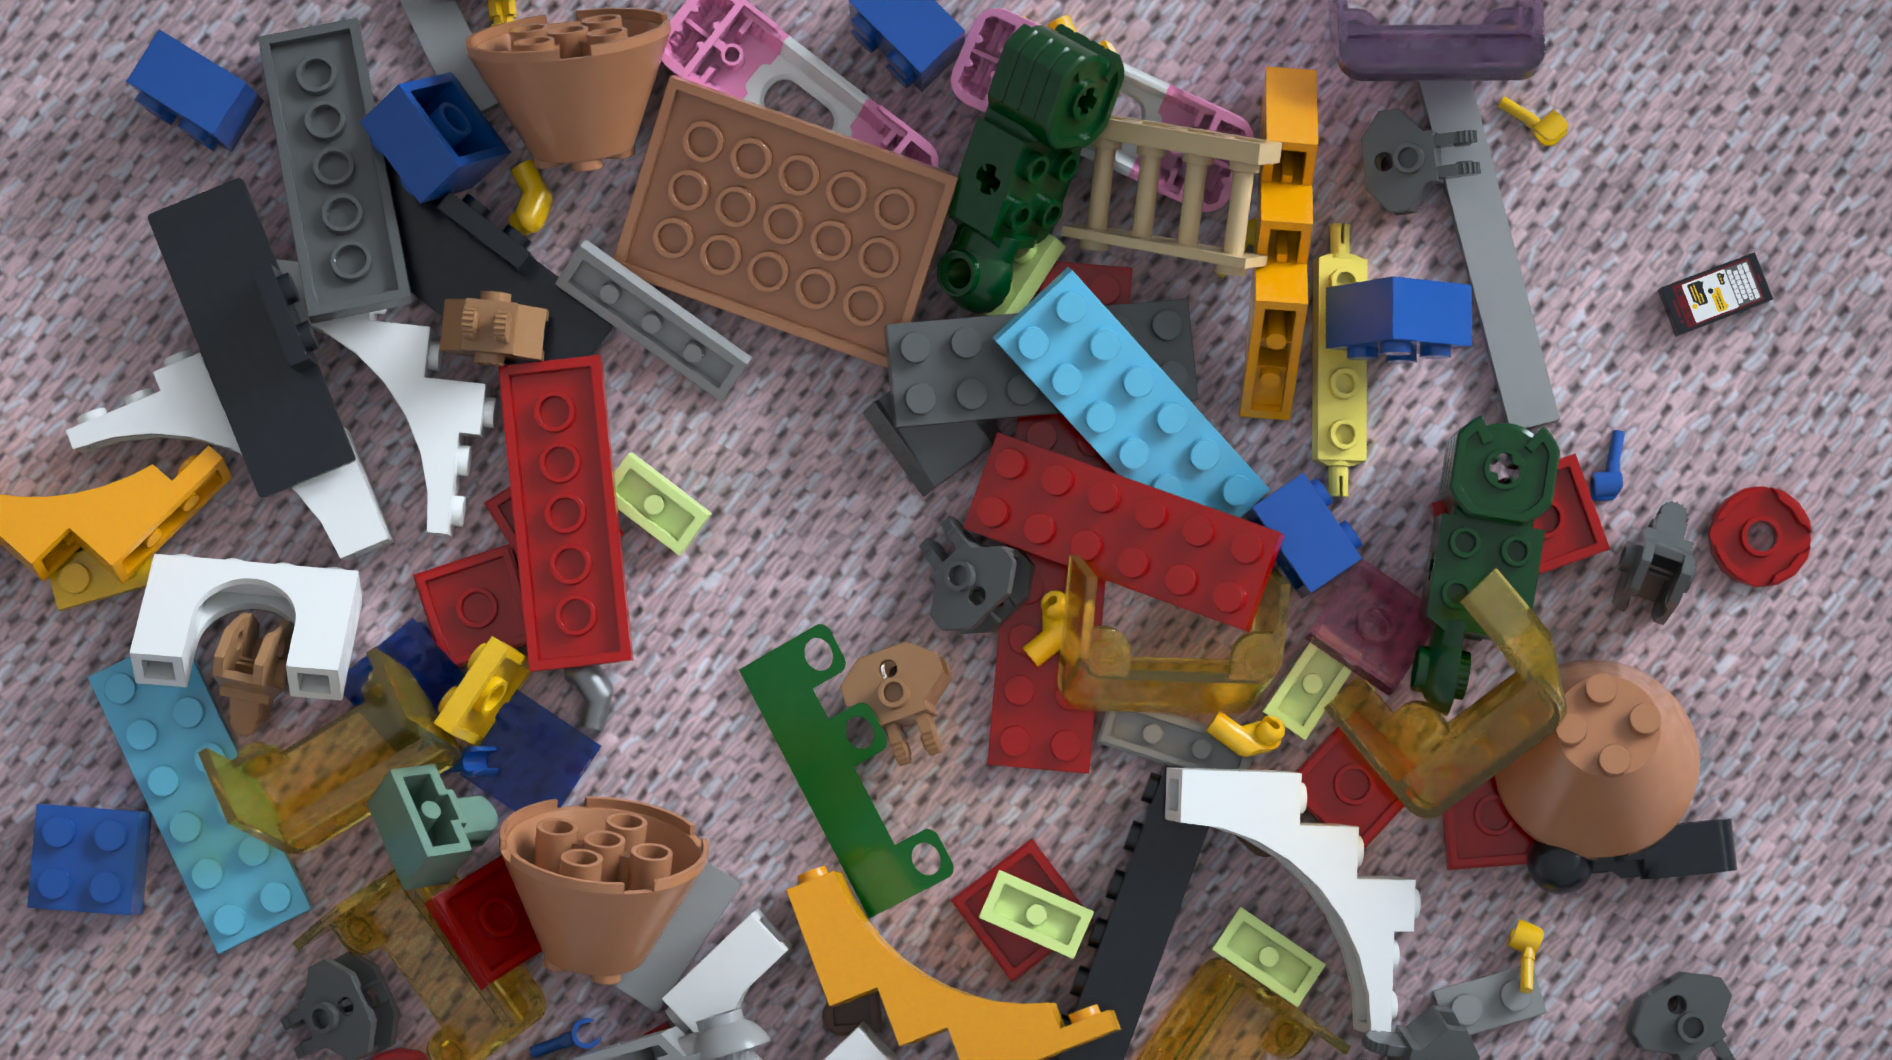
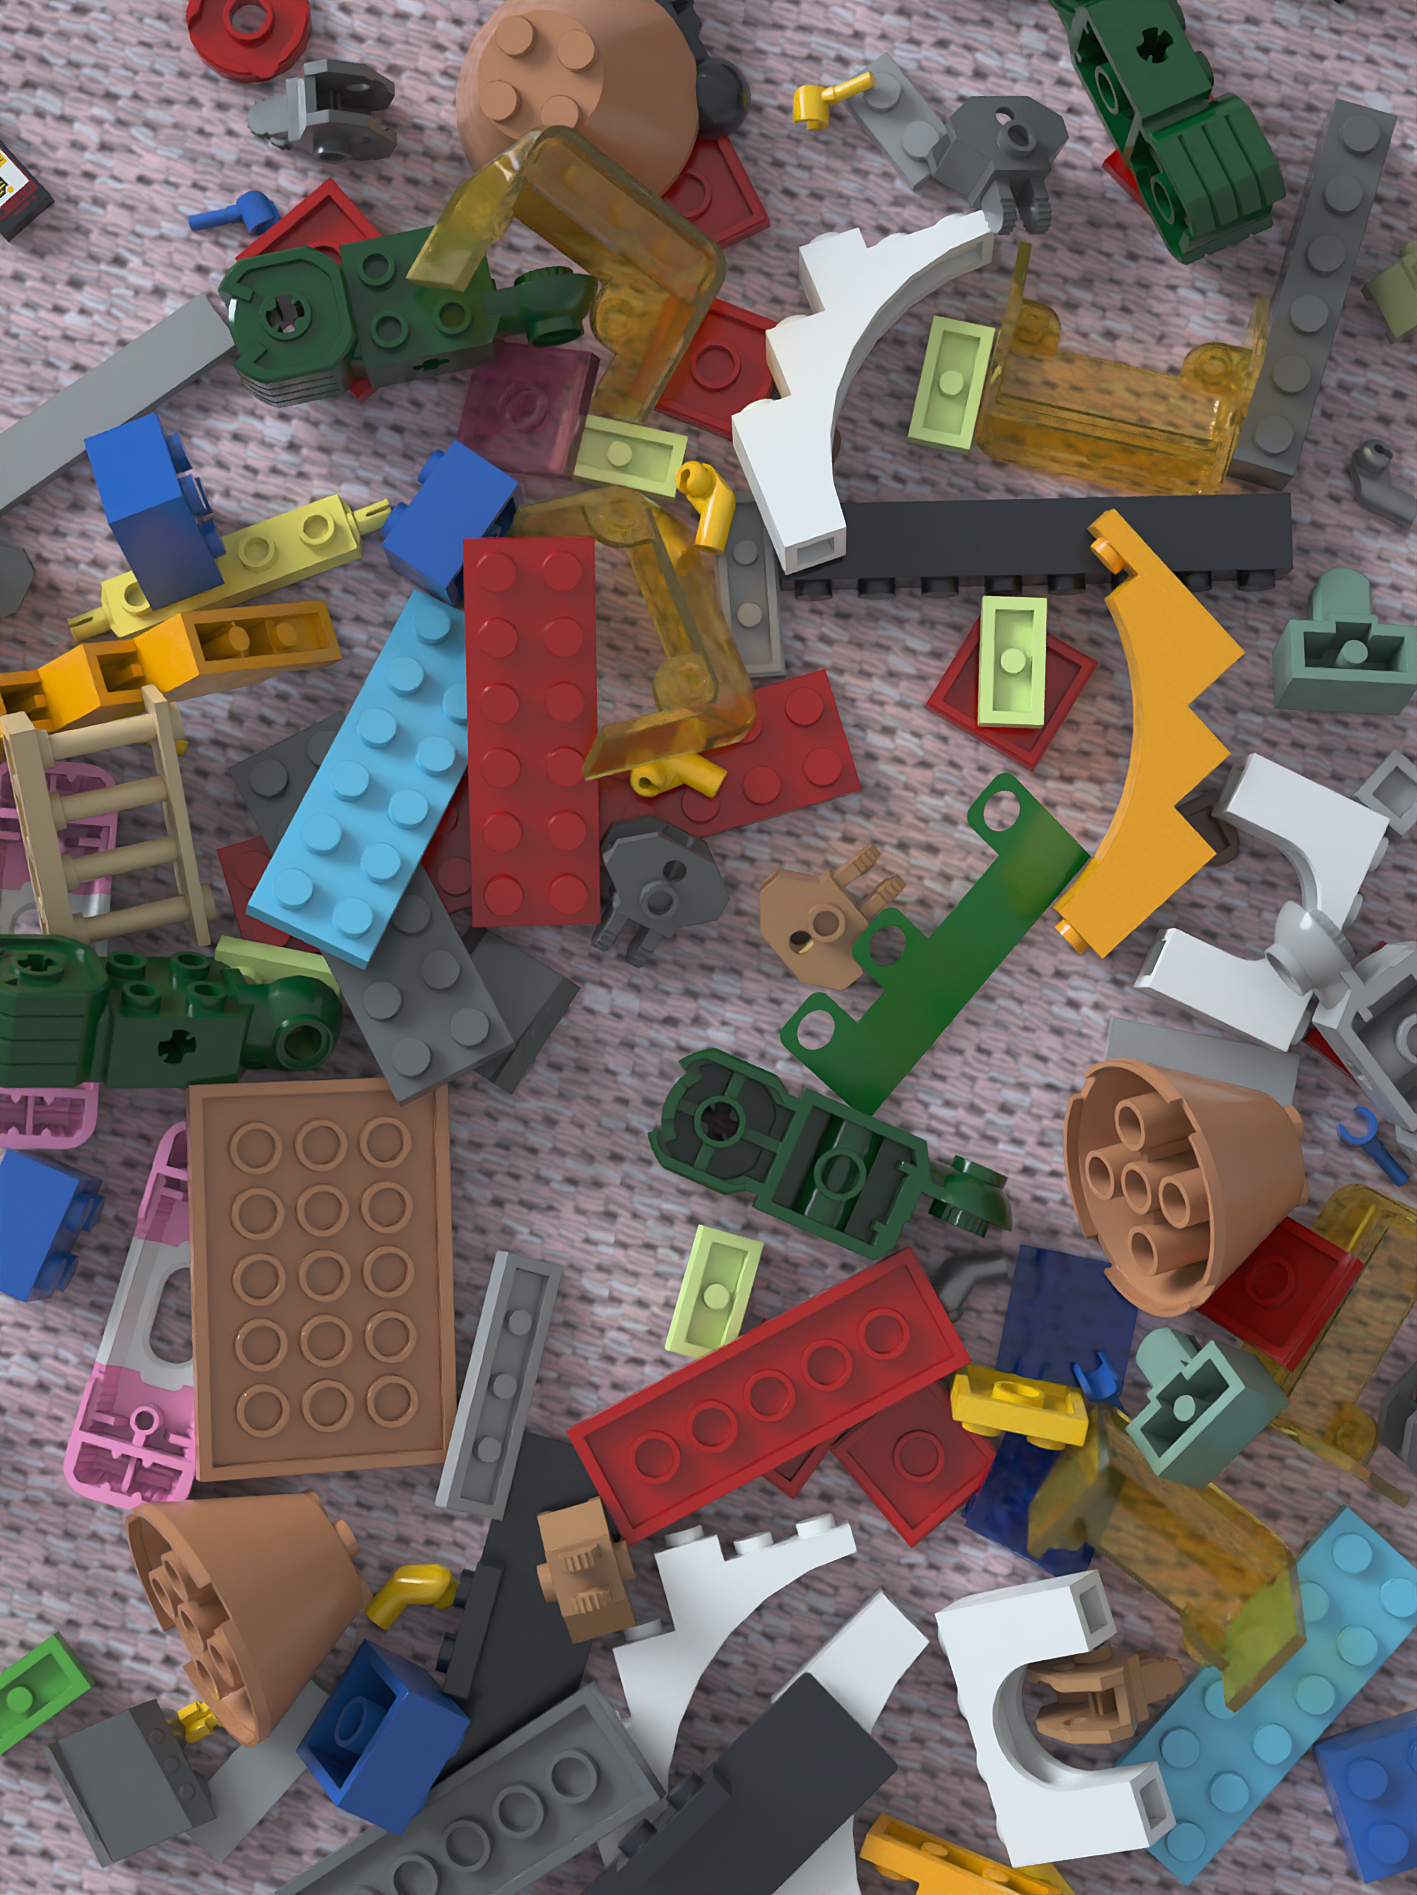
camera: 115 degrees left, 0 degrees up
(724, 615) = (816, 1159): none -> dark green brick

